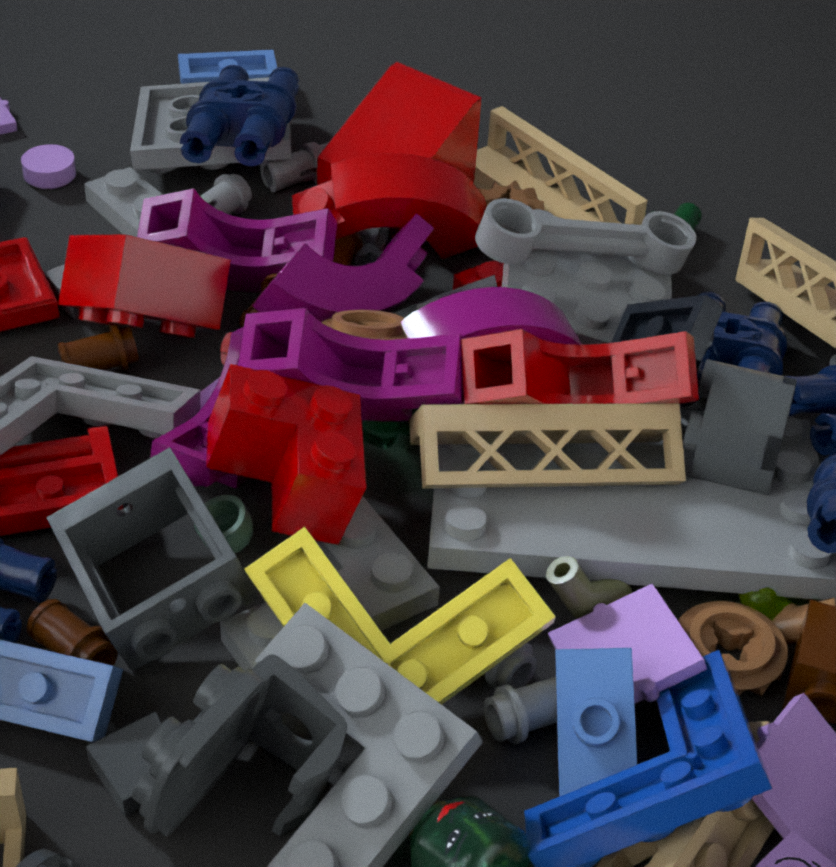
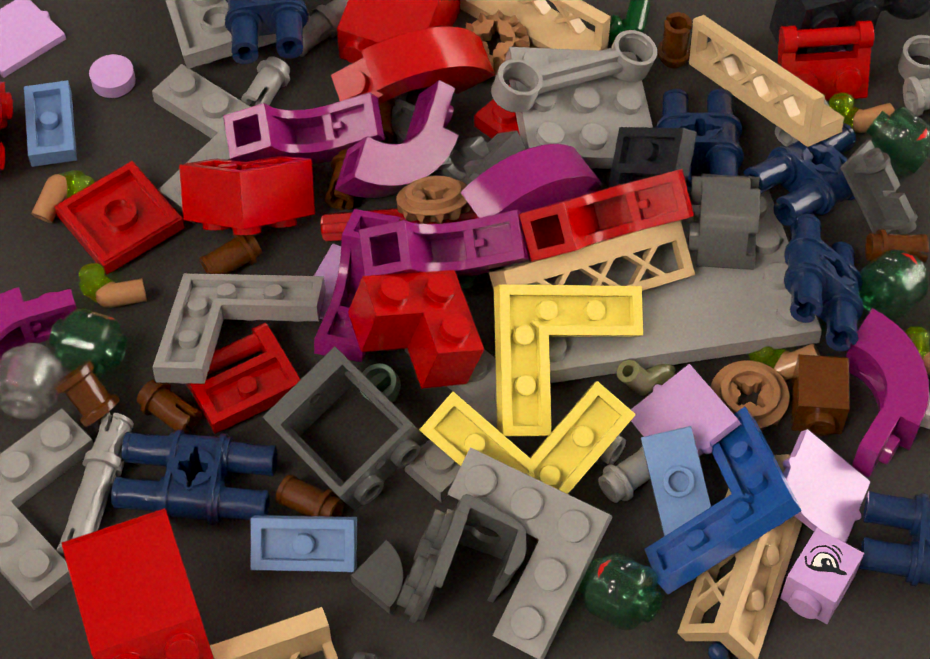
camera: 10 degrees left, 15 degrees up
(453, 463) = (522, 332): none -> light yellow plate
(721, 257) = (675, 46): none -> reddish brown pin

